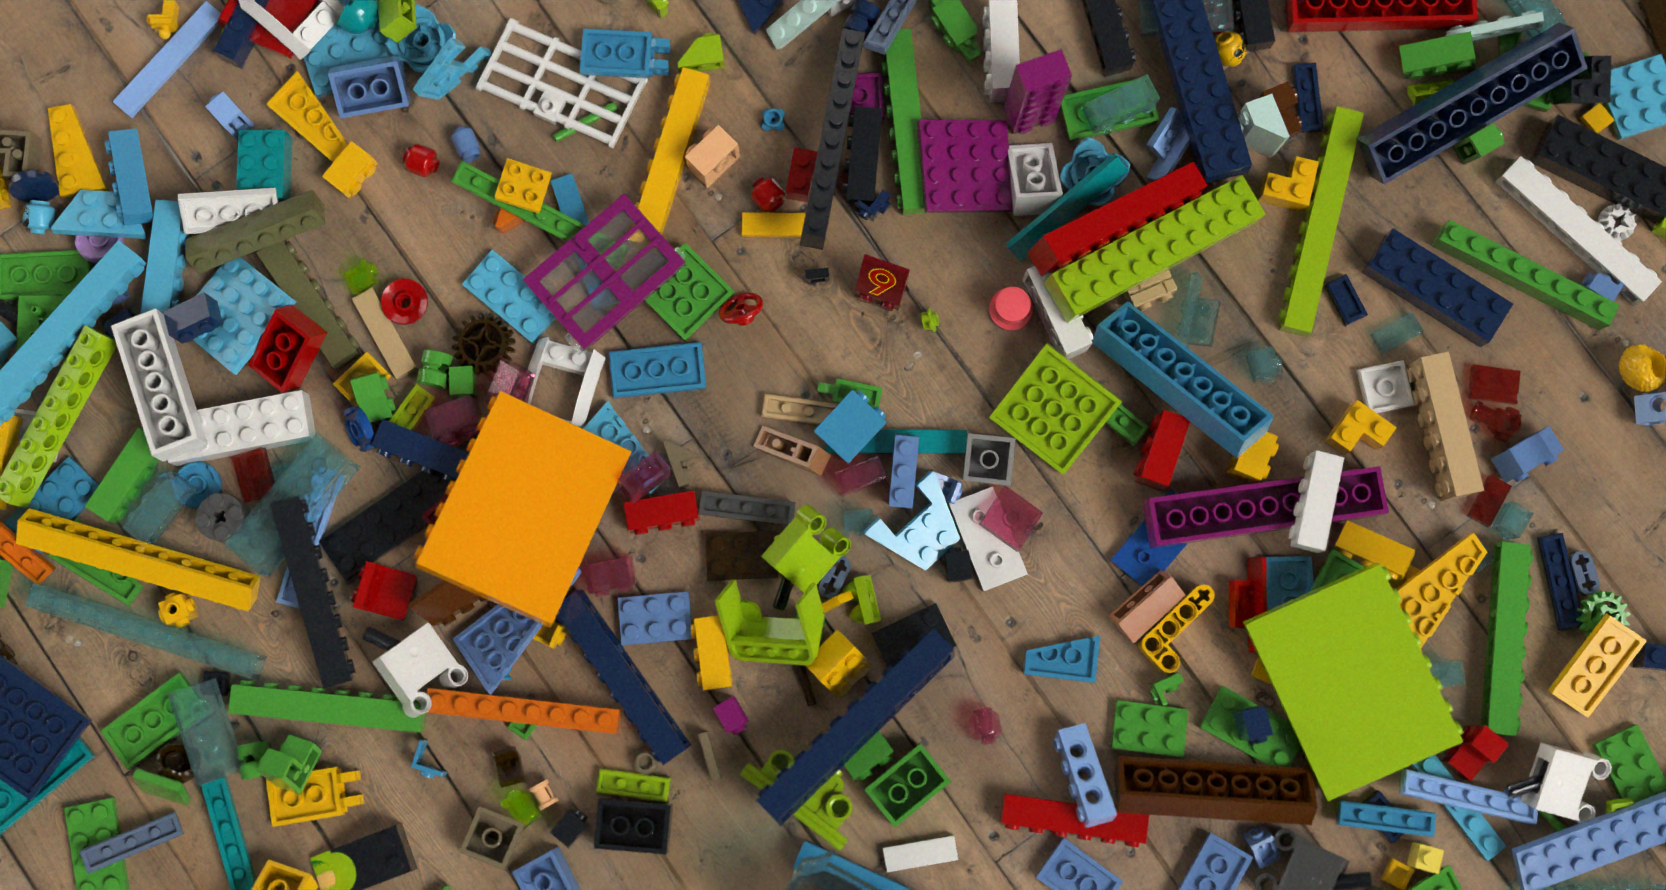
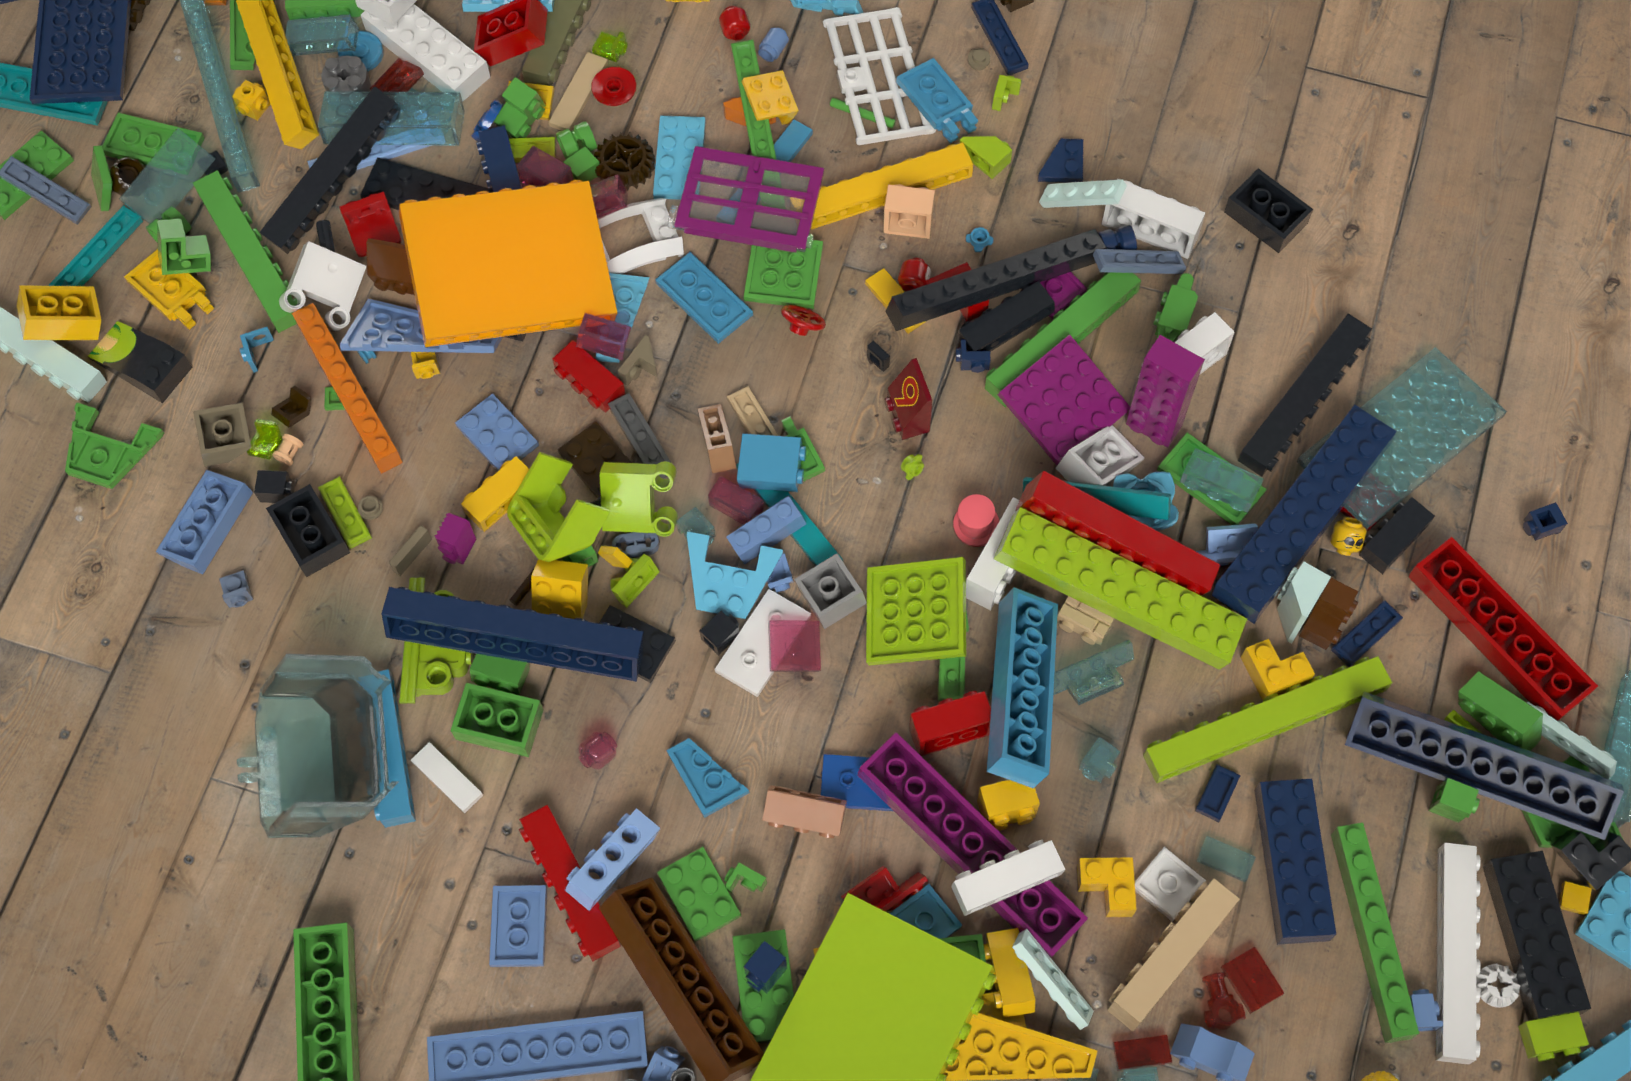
camera: 55 degrees right, 15 degrees down
(610, 575) = (506, 375): clear pink brick -> none
(622, 677) = (427, 439): dark blue brick -> none
(1179, 624) = (809, 852): yellow beam -> none
(1403, 524) = (1053, 979): none -> light aqua plate

